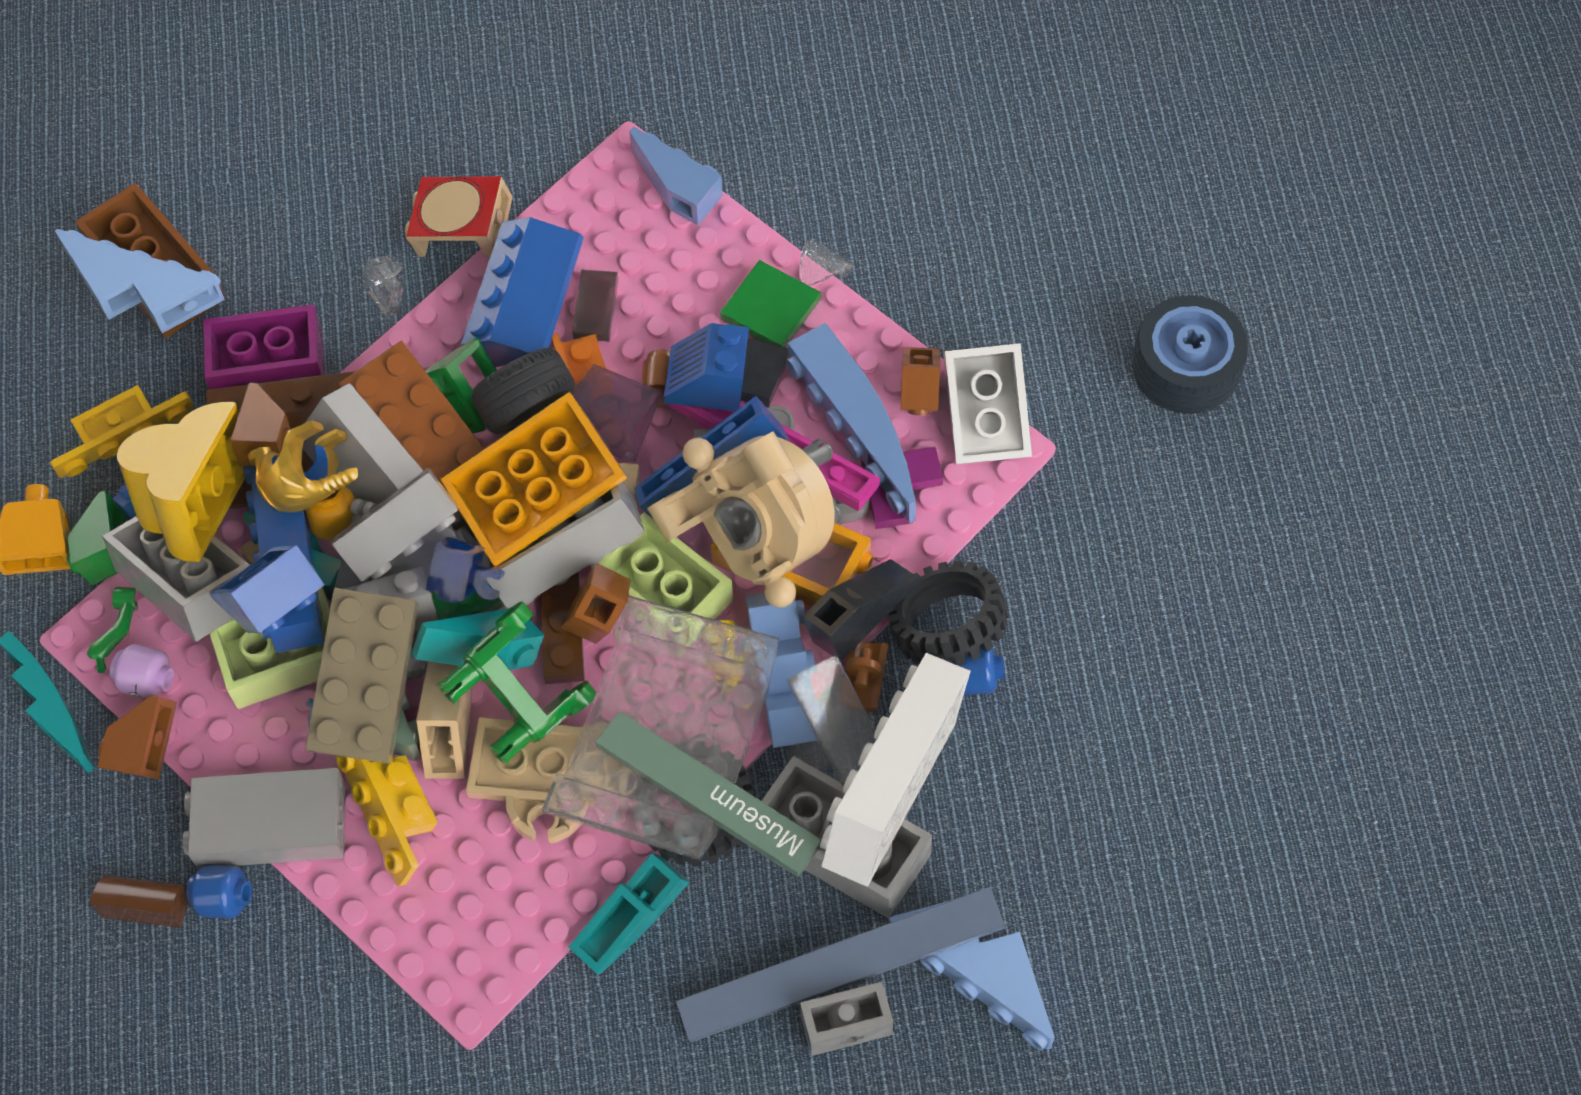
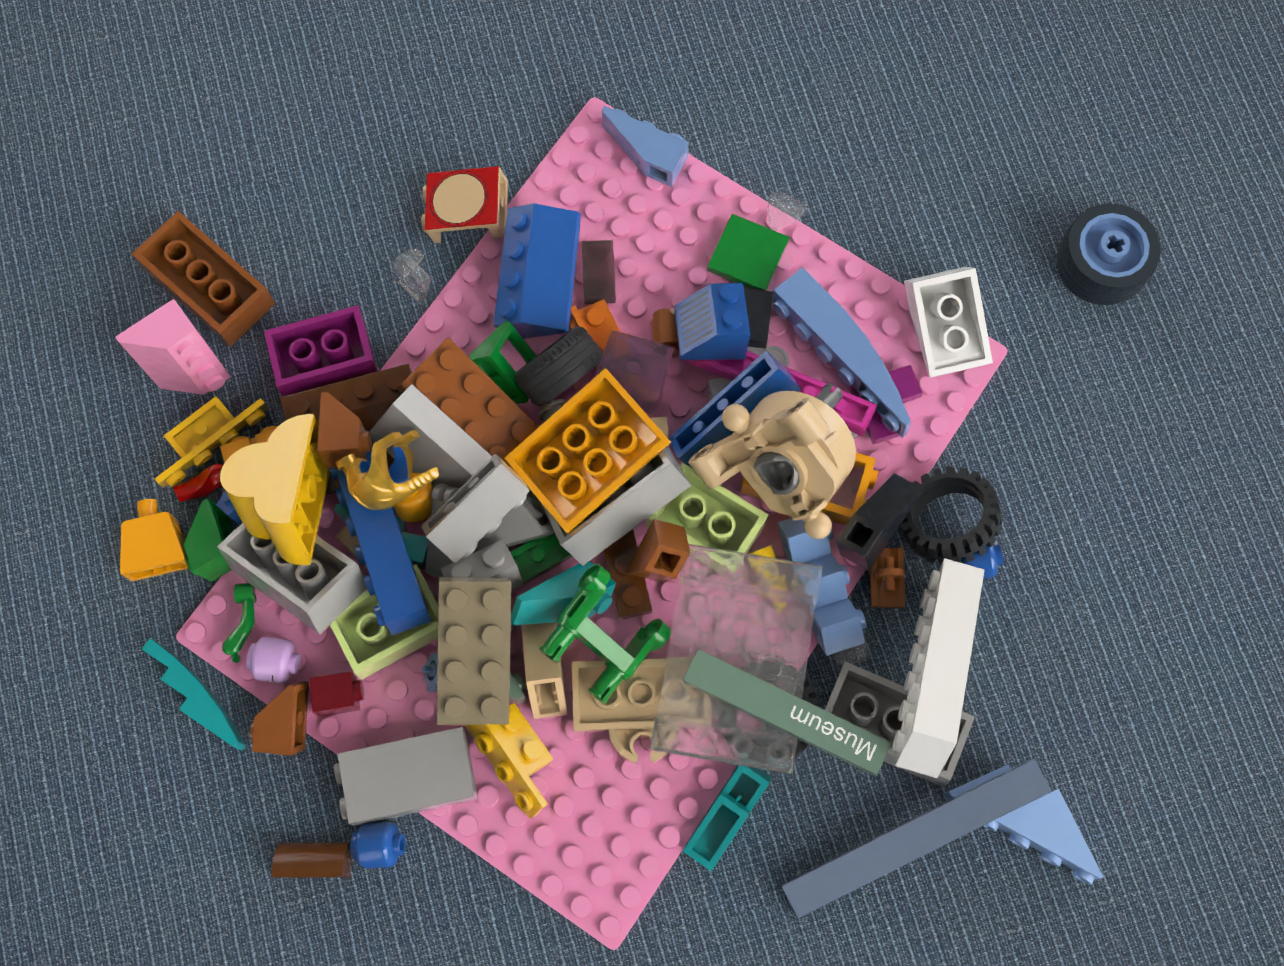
camera: 10 degrees left, 10 degrees up
(97, 326) = (173, 352): none -> bright pink slope
(104, 478) = (200, 485): none -> red arm
(127, 278) = (225, 308): light blue slope -> none
(204, 718) = (336, 693): none -> dark red brick
(269, 589) = (379, 587): slope -> none
(458, 572) = (537, 543): clear blue brick -> none
(834, 714) = (878, 625): clear piece -> none
(846, 1018) = (928, 884): light grey brick -> none
(920, 380) = (889, 306): dark orange slope -> none

